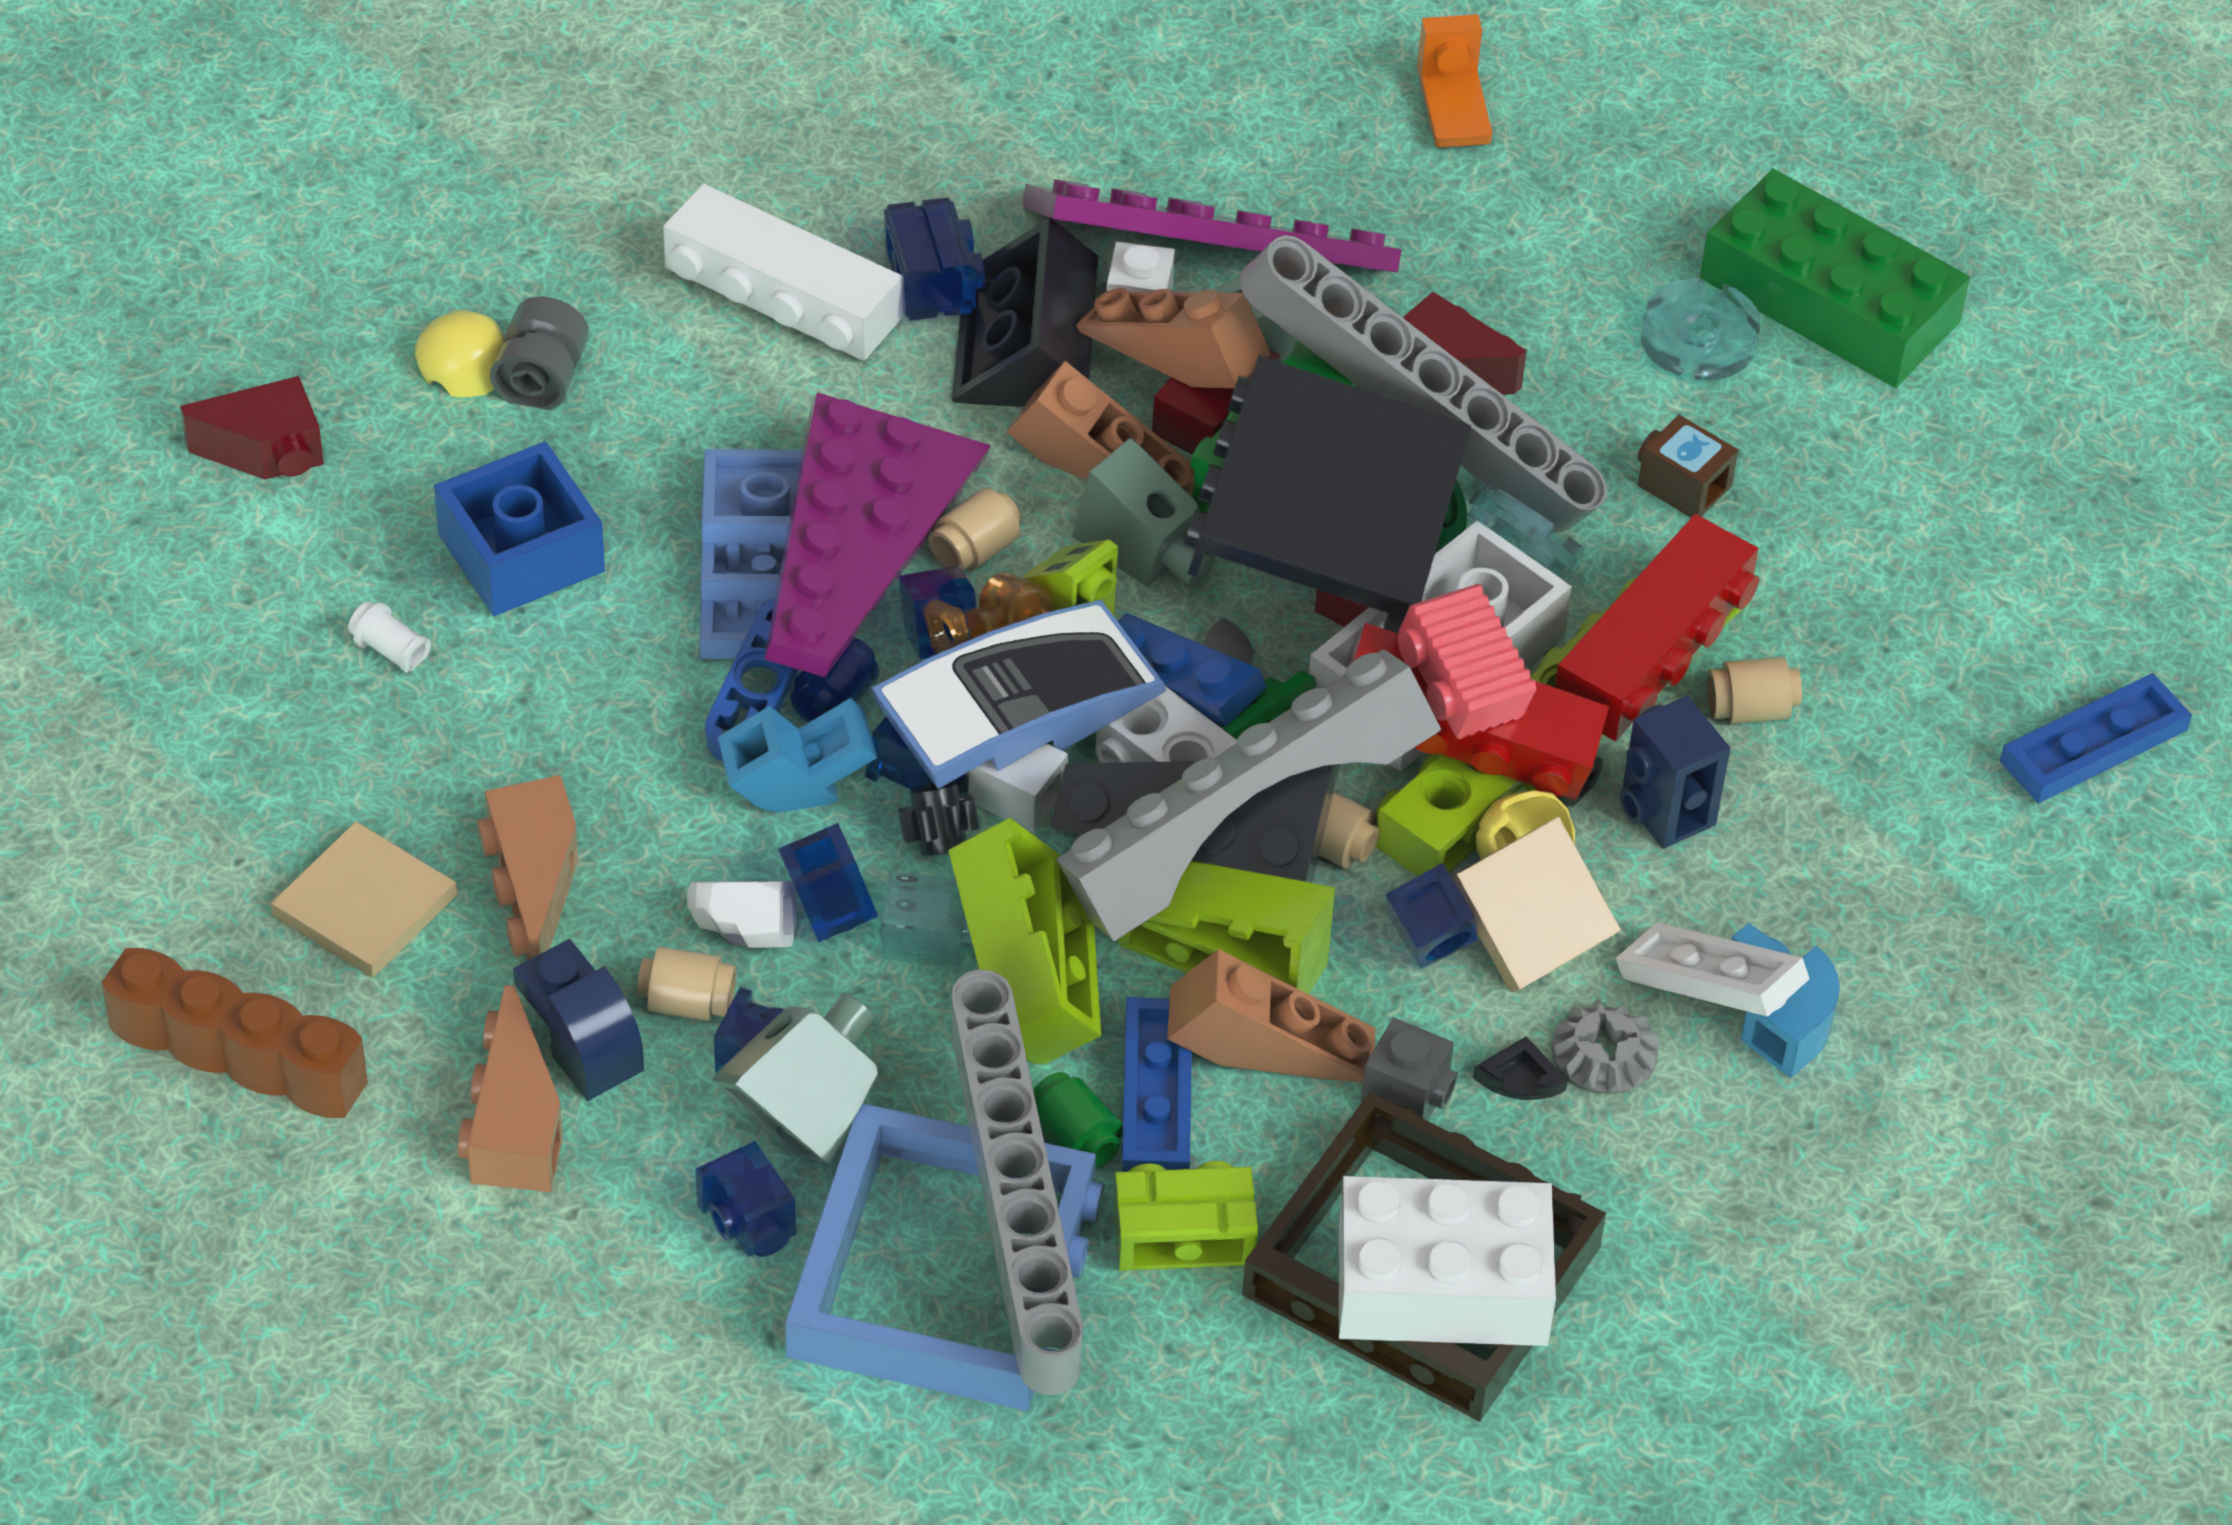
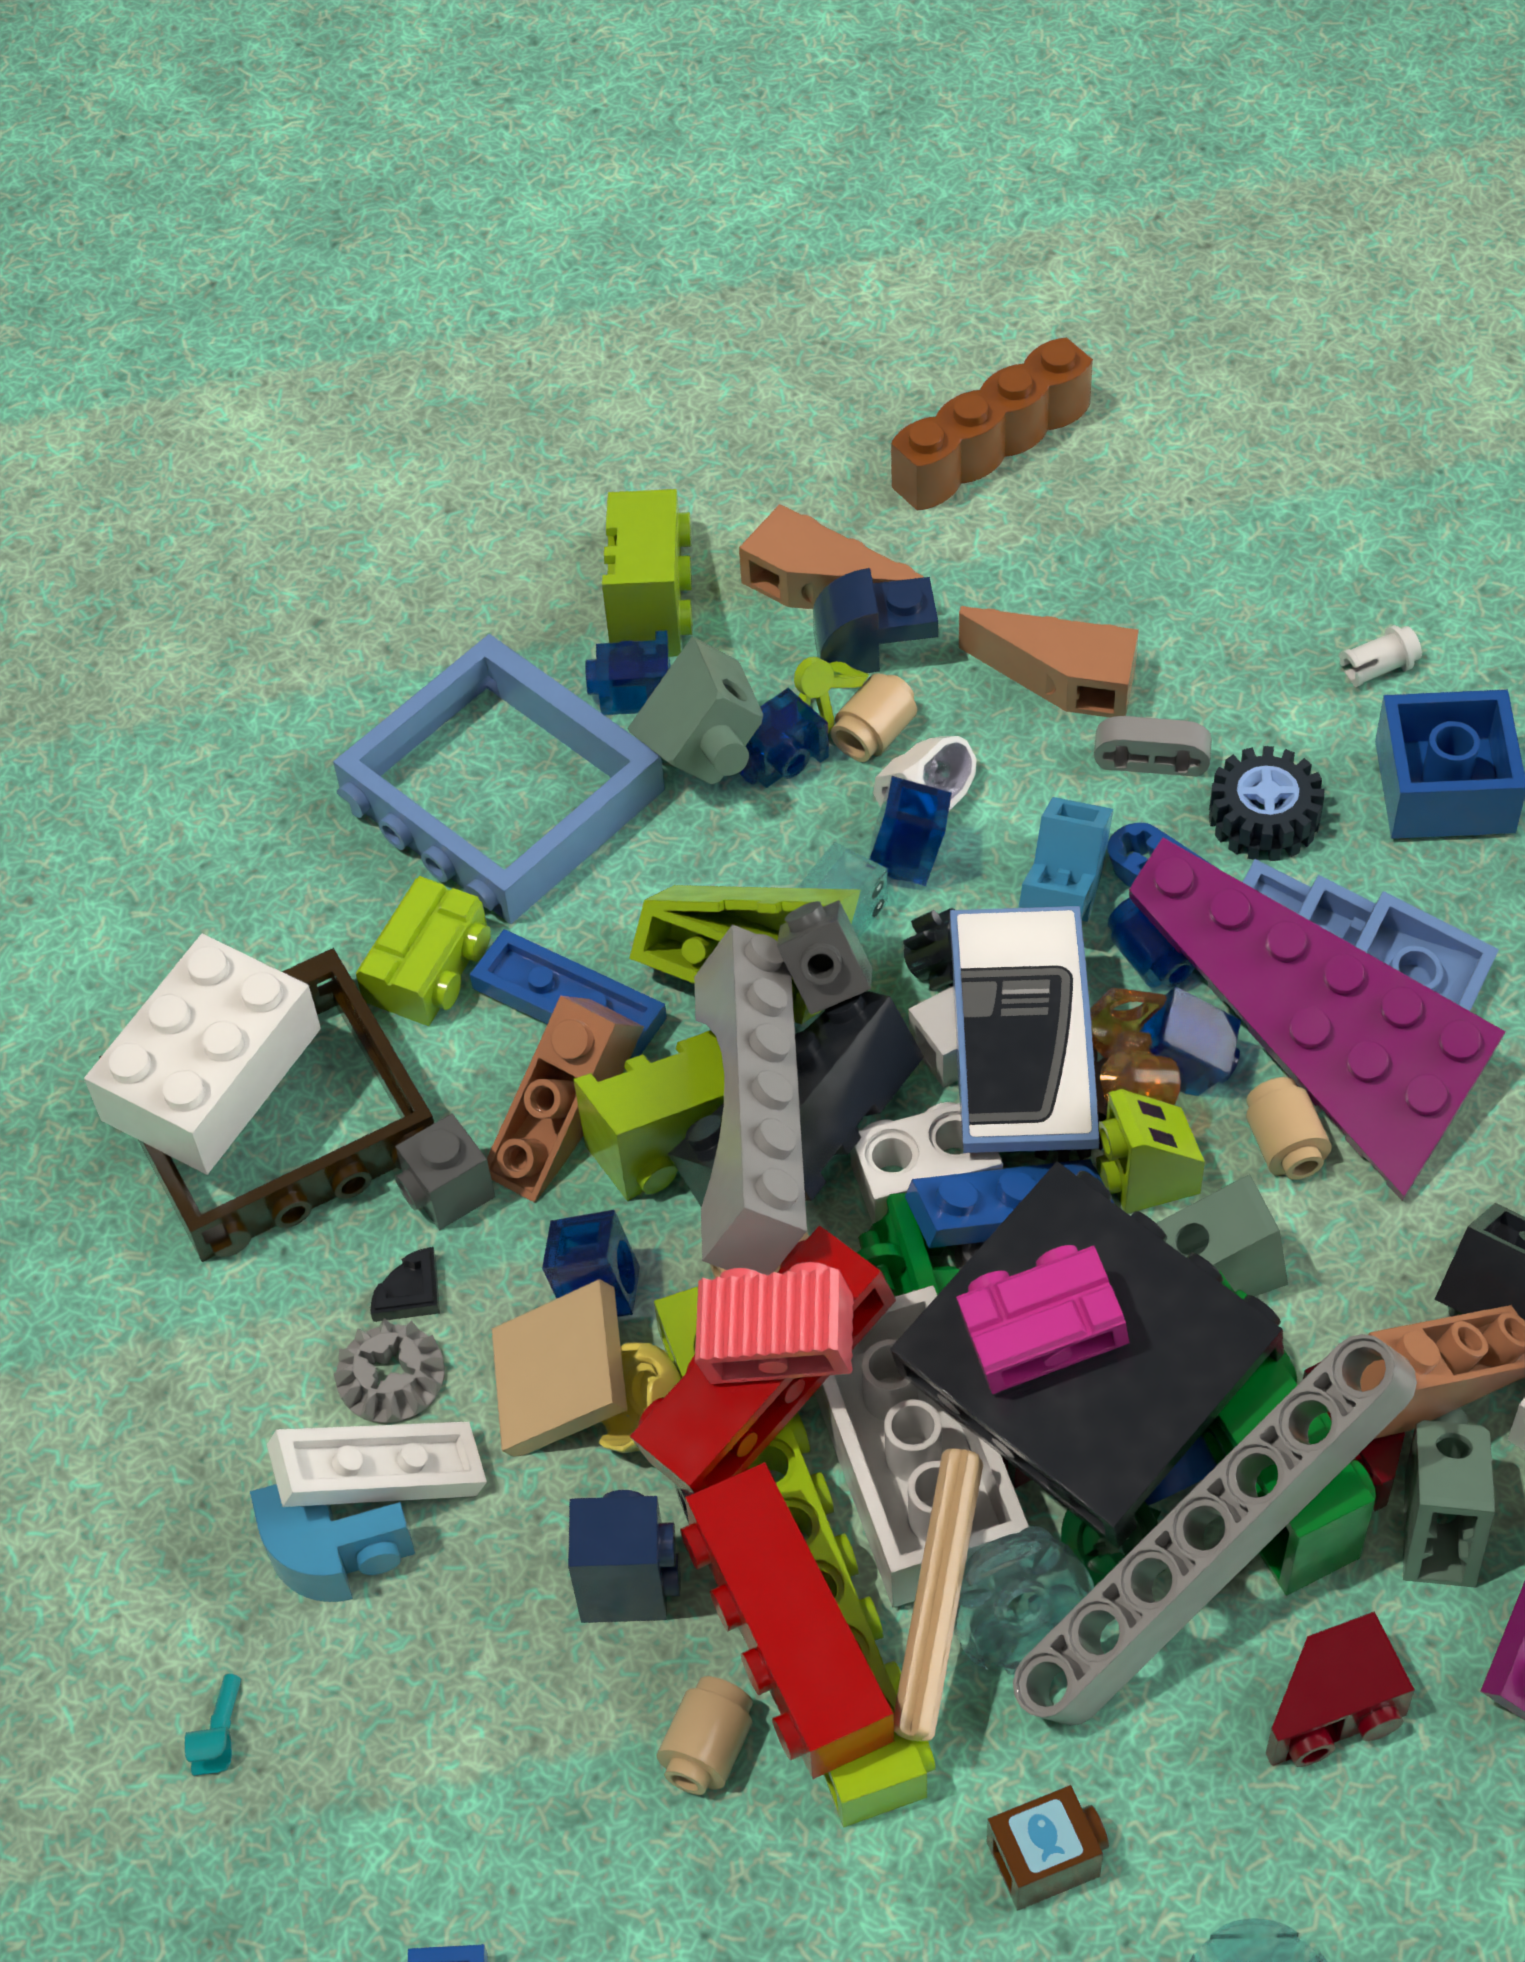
camera: 125 degrees right, 5 degrees up
(364, 899) = (1098, 557): tan tile -> none
(604, 760) = (1153, 746): none -> light grey beam
(611, 1239) = (647, 567): none -> lime wedge
(644, 643) = (1289, 798): none -> black wheel
(711, 994) = (816, 677): none -> lime piece
(1000, 1090) = (500, 801): light grey beam -> none
(1060, 811) = (824, 955): none -> dark grey brick
(1077, 1117) = (568, 919): green brick -> none
(1079, 425) = (1360, 1282): nougat slope -> none
(1354, 486) = (1042, 1317): none -> dark pink brick
(1566, 544) = (937, 1595): none -> tan axle
(1992, 997) = (211, 1748): none -> teal hand

